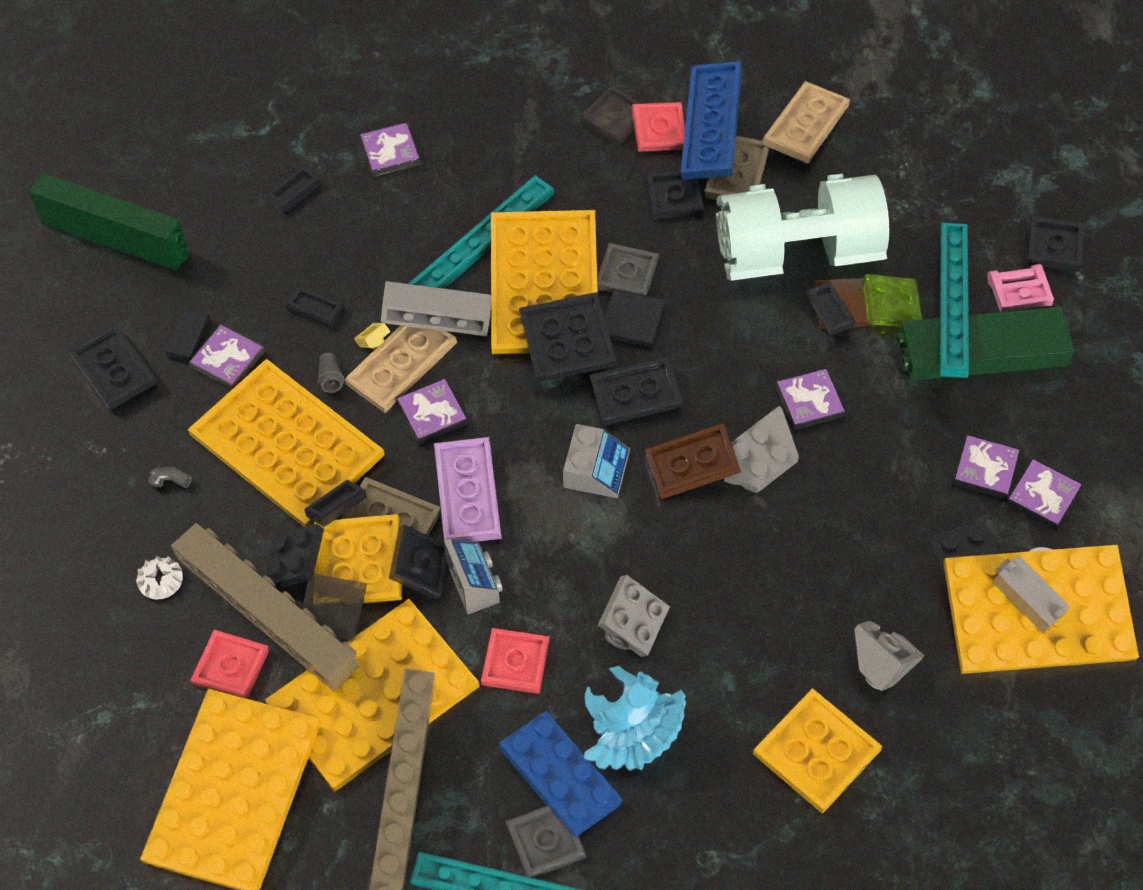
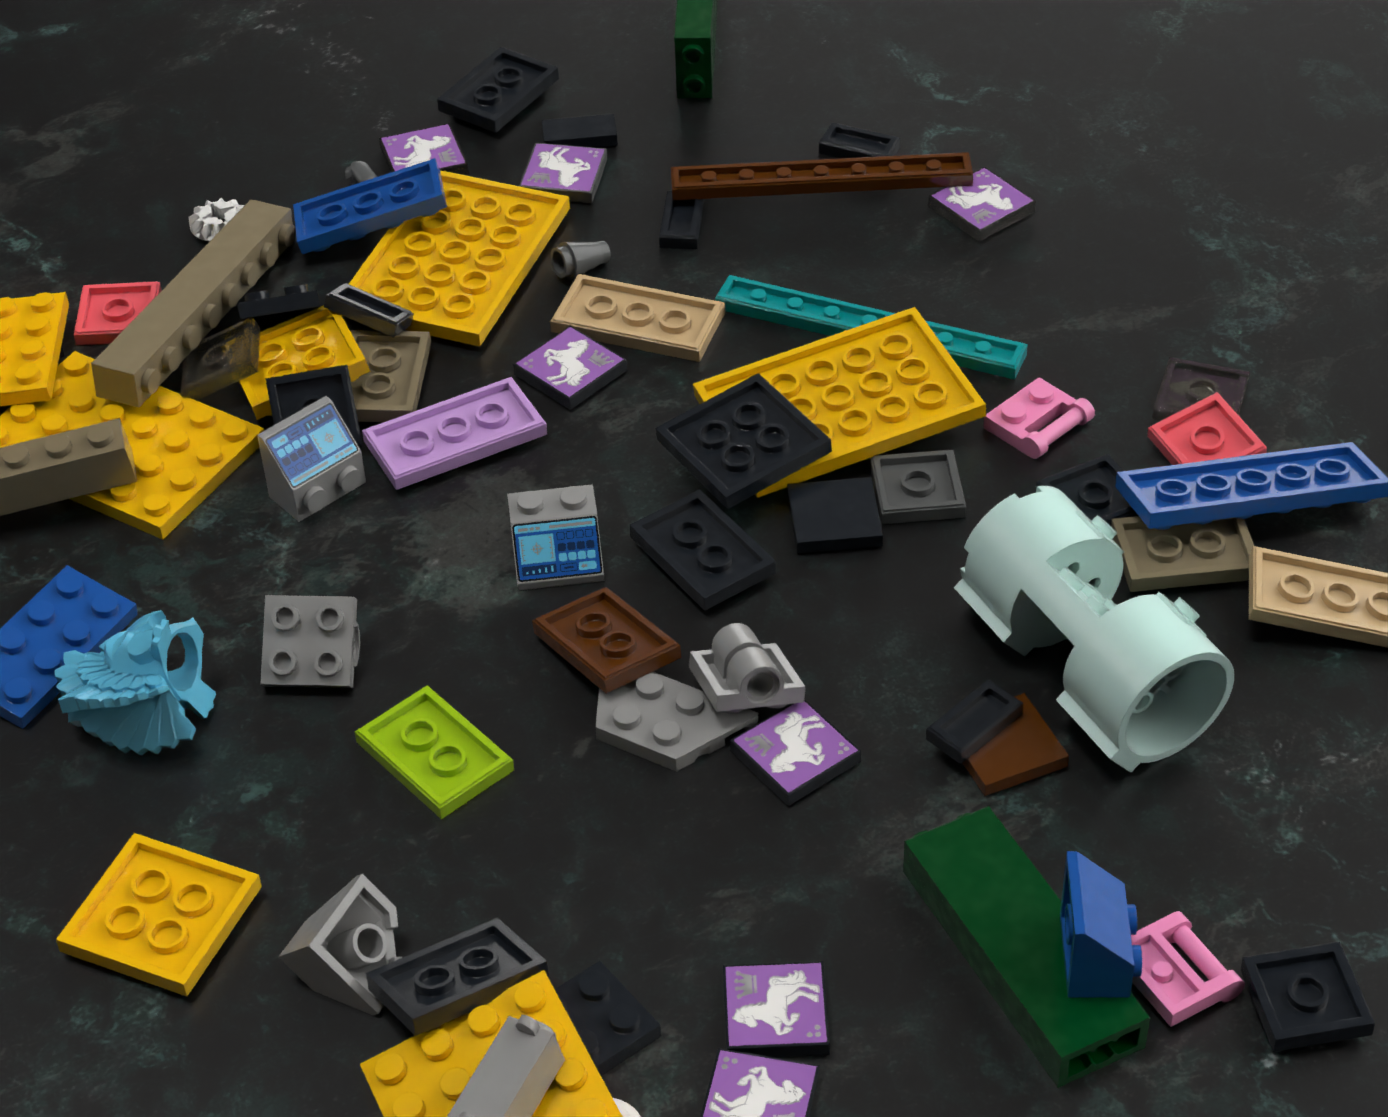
camera: 70 degrees right, 15 degrees down
(158, 433) = (423, 145): none -> tile
(216, 475) = (369, 206): none -> blue plate
(324, 220) = (821, 176): none -> reddish brown tile
(372, 336) = (656, 275): light yellow plate -> none
(436, 308) = (722, 303): light grey brick -> none
(515, 660) = (209, 558): coral tile -> none
(590, 197) = (1030, 410): none -> bright pink plate
(737, 576) = (434, 751): none -> lime tile
(756, 400) = (745, 673): none -> light grey plate
(891, 300) = (1041, 797): clear neon green plate -> none
(927, 604) = (454, 975): none -> black plate
(954, 300) = (1042, 861): teal tile -> none
(1019, 306) = (1097, 931): none -> blue slope

